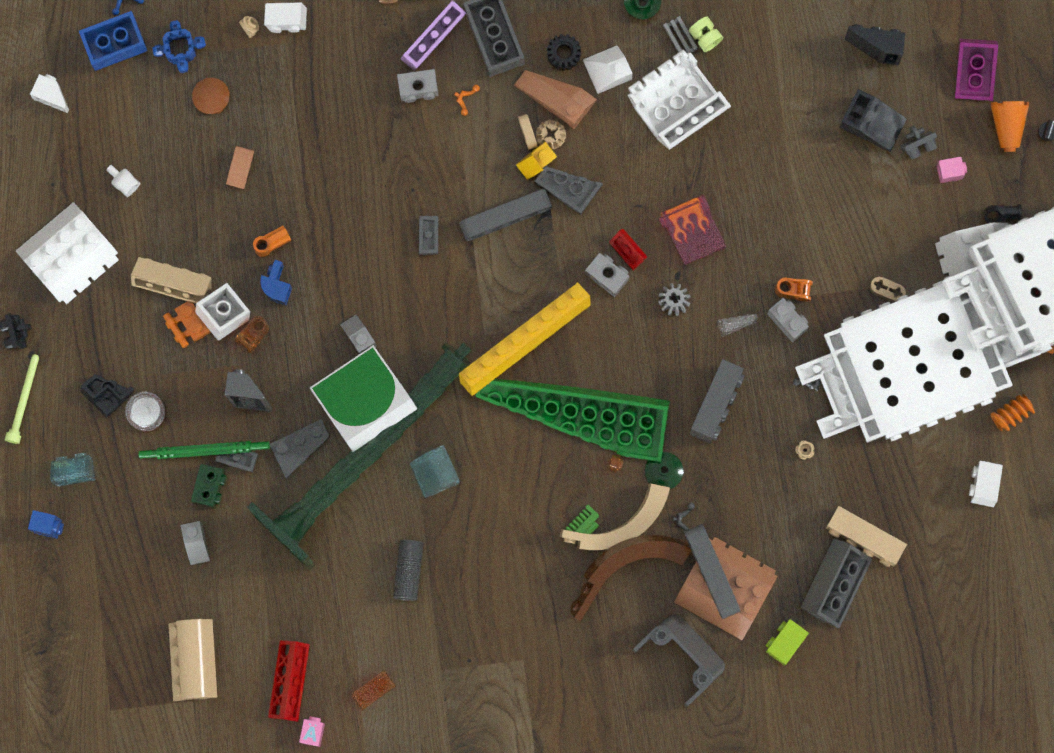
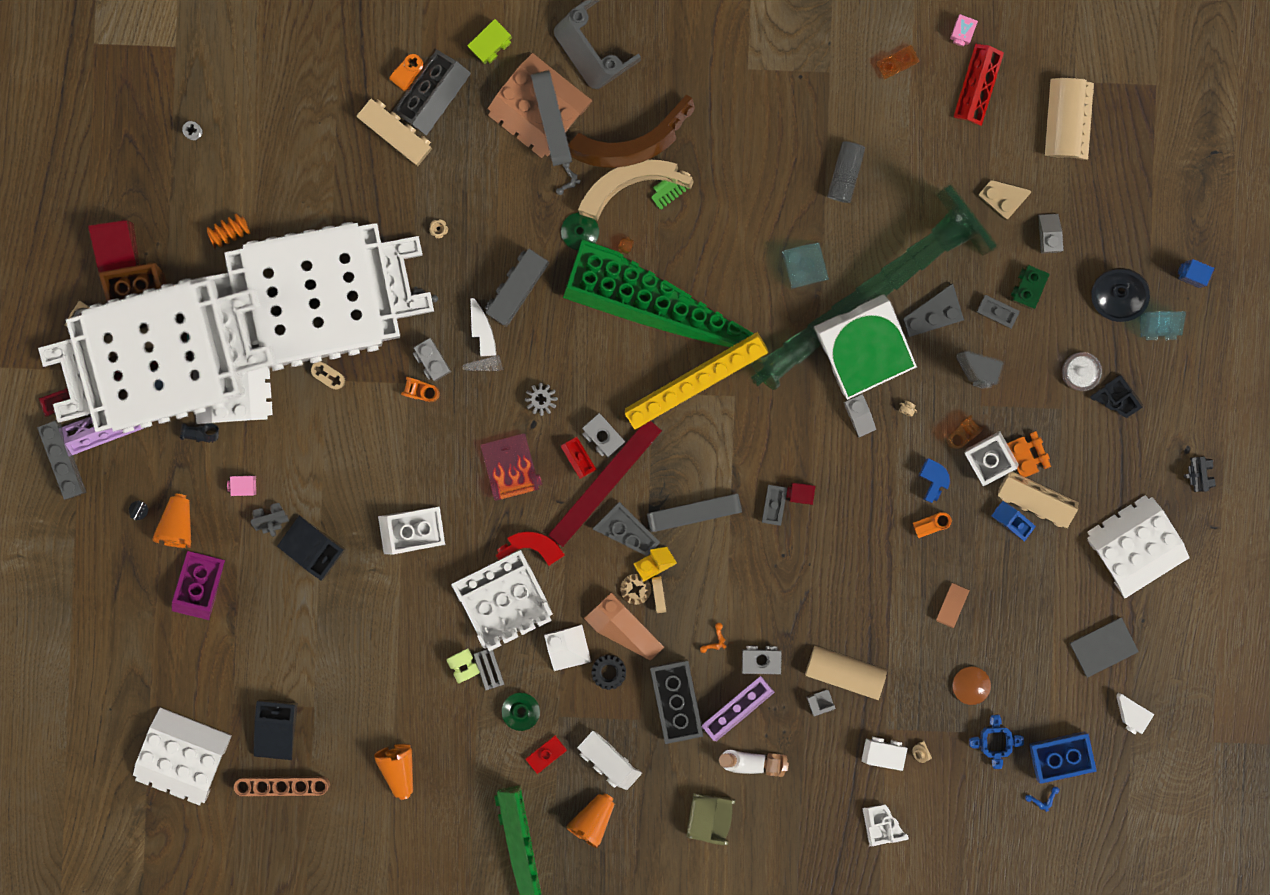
camera: 175 degrees left, 10 degrees up
(13, 435) = (1215, 370): yellowish green piece -> none
(87, 152) = (1104, 647): none -> dark grey tile
(117, 484) = (1117, 304): none -> black dish
(123, 181) = (1071, 611): white piece -> none
(192, 257) = (1013, 520): none -> blue slope
(204, 449) = (1029, 323): green axle -> none
(247, 572) = (1003, 197): none -> tan wing
(312, 349) = (907, 408): none -> tan plate
(334, 87) = (846, 672): none -> tan brick
(354, 55) = (820, 702): none -> light grey panel
(404, 250) = (801, 493): none -> dark red brick
(598, 229) = (605, 483): none -> dark red tile
(657, 163) = (541, 543): none -> red arch
(744, 357) = (482, 329): none -> white slope
(778, 153) = (411, 530): none -> white slope
(866, 598) = (404, 75): none -> orange piece
(879, 44) = (289, 623): black slope -> none
(986, 483) = (267, 165): white brick -> none

